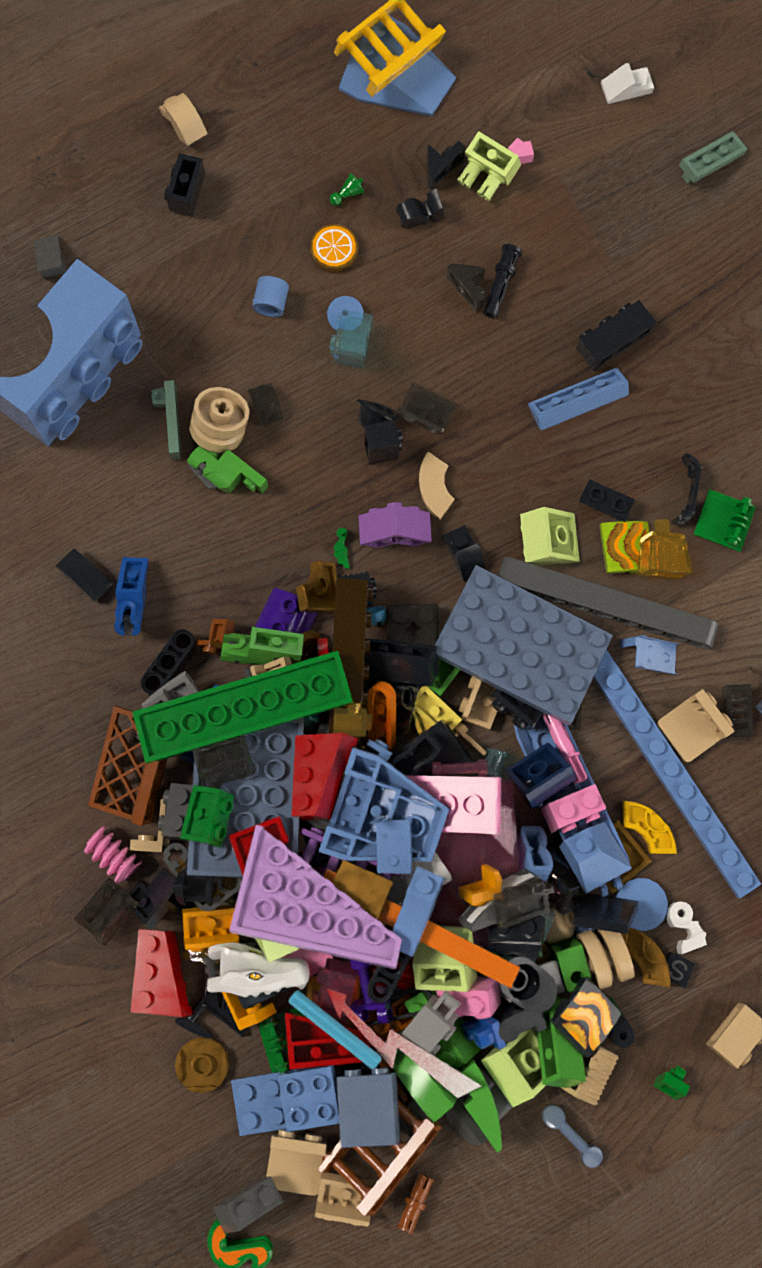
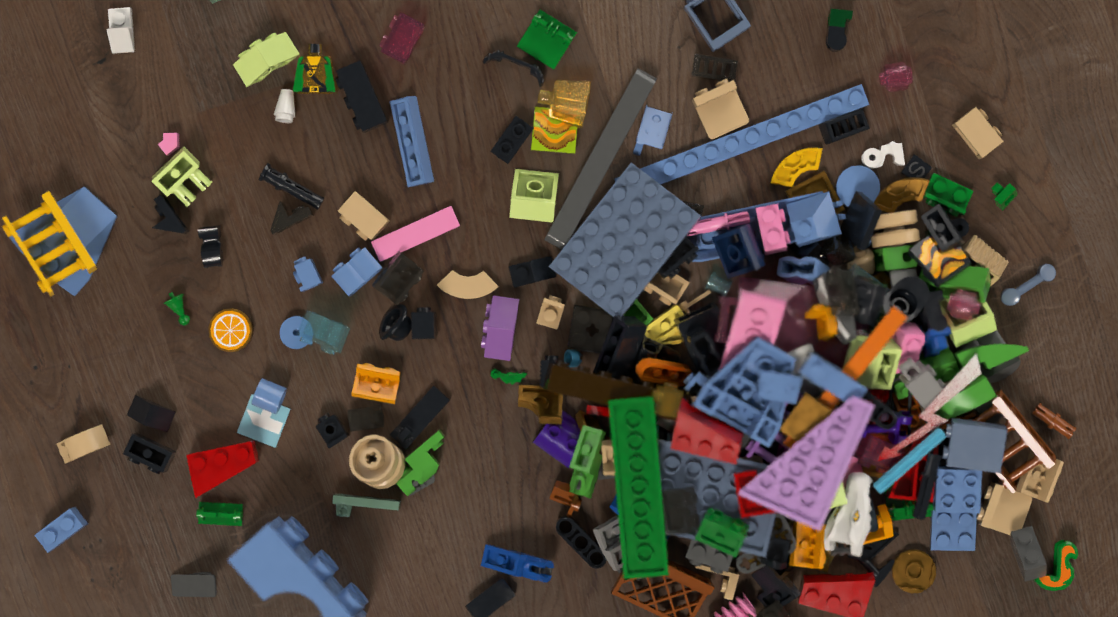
camera: 70 degrees left, 10 degrees up
(87, 112) = (61, 529): none -> medium blue piece
(132, 270) = (220, 513): none -> green hinge
(184, 257) = (219, 464): none -> red wedge
(227, 184) = (151, 414): none -> black slope
(237, 301) = (262, 424): none -> medium azure sticker
(245, 376) = (339, 431): none -> black brick
(277, 461) = (419, 417): none -> black hinge
(306, 406) = (376, 383): none -> light orange bracket
(307, 1057) = (926, 486): none -> black axle
(410, 313) = (306, 274): none -> medium blue brick
(423, 581) = (551, 312): none -> tan bracket
(425, 364) = (356, 271): none -> medium blue brick
(479, 420) = (415, 233): none -> bright pink tile
(487, 360) = (362, 216): none -> tan piece
(536, 1058) = (963, 305): none -> clear pink head
(585, 259) = (285, 107): none -> white cone
(619, 1013) = (942, 228): none -> black slope
(629, 281) = (315, 73): none -> torso
(637, 225) = (265, 57): none -> yellowish green brick
(656, 1013) = (947, 194): none -> green bracket
(689, 365) = (402, 38): none -> clear pink brick
(694, 856) = (830, 130): none -> black slope

